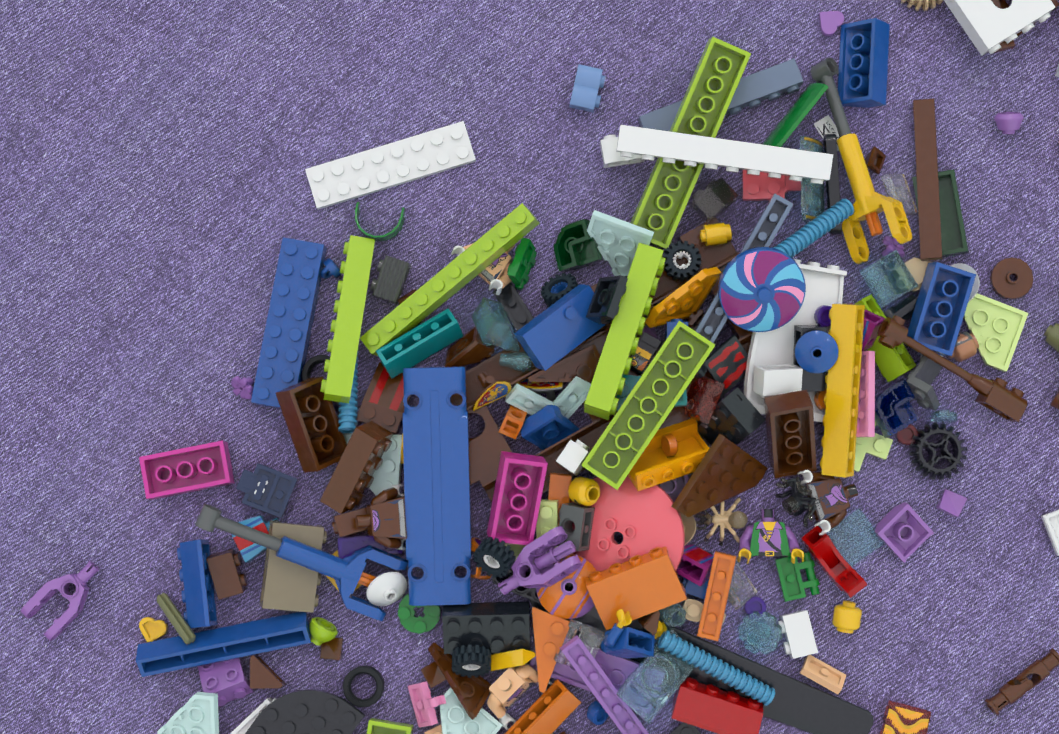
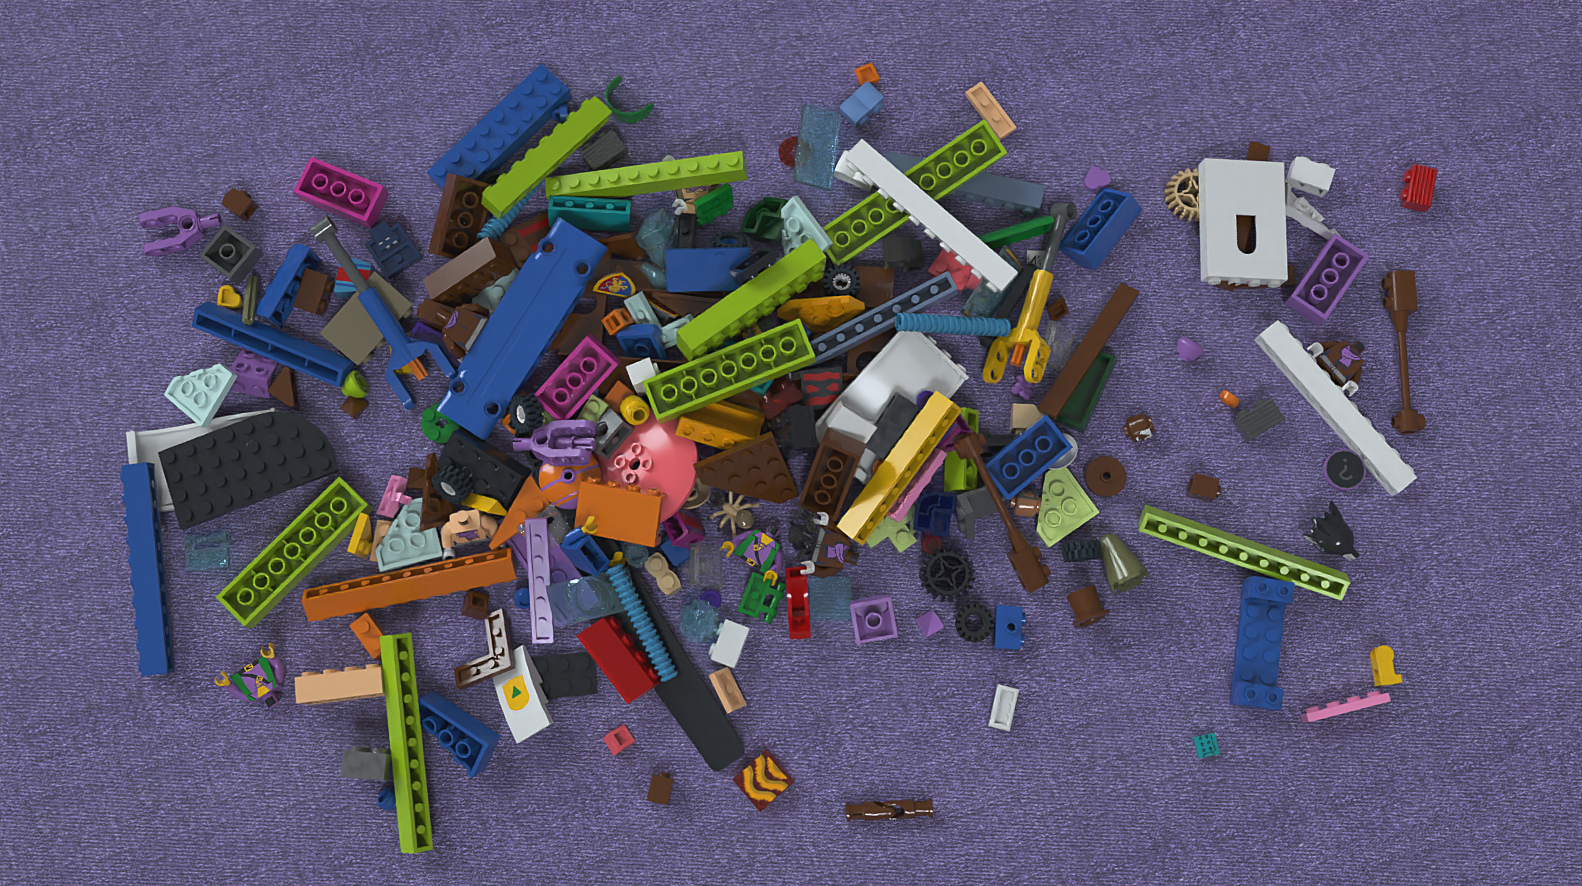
camera: 30 degrees right, 5 degrees down
(101, 540) = (239, 204): none -> reddish brown brick
(129, 590) = (231, 254): none -> dark grey brick
(243, 387) = (430, 157): medium lavender plant -> none
(379, 686) = (345, 440): black tyre -> none
(386, 588) = (429, 380): white dish -> none
(390, 165) = (666, 66): white plate -> none
(557, 160) = (787, 147): none -> clear red gear
(571, 58) = (867, 73): none -> orange tile
(574, 153) = (816, 147): none -> clear light blue plate
(650, 622) = (613, 548): reddish brown slope -> none
(669, 445) = (728, 419): orange tile -> none
(700, 20) = (990, 110): none -> light nougat plate
(716, 234) = (883, 280): yellow brick -> none
(716, 596) = (681, 563): orange tile -> none
(761, 289) = (885, 339): dish -> none
(816, 340) = (907, 420): blue dish -> none
(847, 617) = (779, 657): yellow head -> none
(889, 278) = (1000, 408): clear light blue slope -> none
(943, 416) = (972, 550): clear light blue tile -> none
(1000, 477) = (987, 622): none -> black tyre
(1012, 217) = (1138, 427): none -> reddish brown head
(1019, 463) = (1007, 628): none -> blue brick
(1037, 356) = (1081, 551): none -> black bush

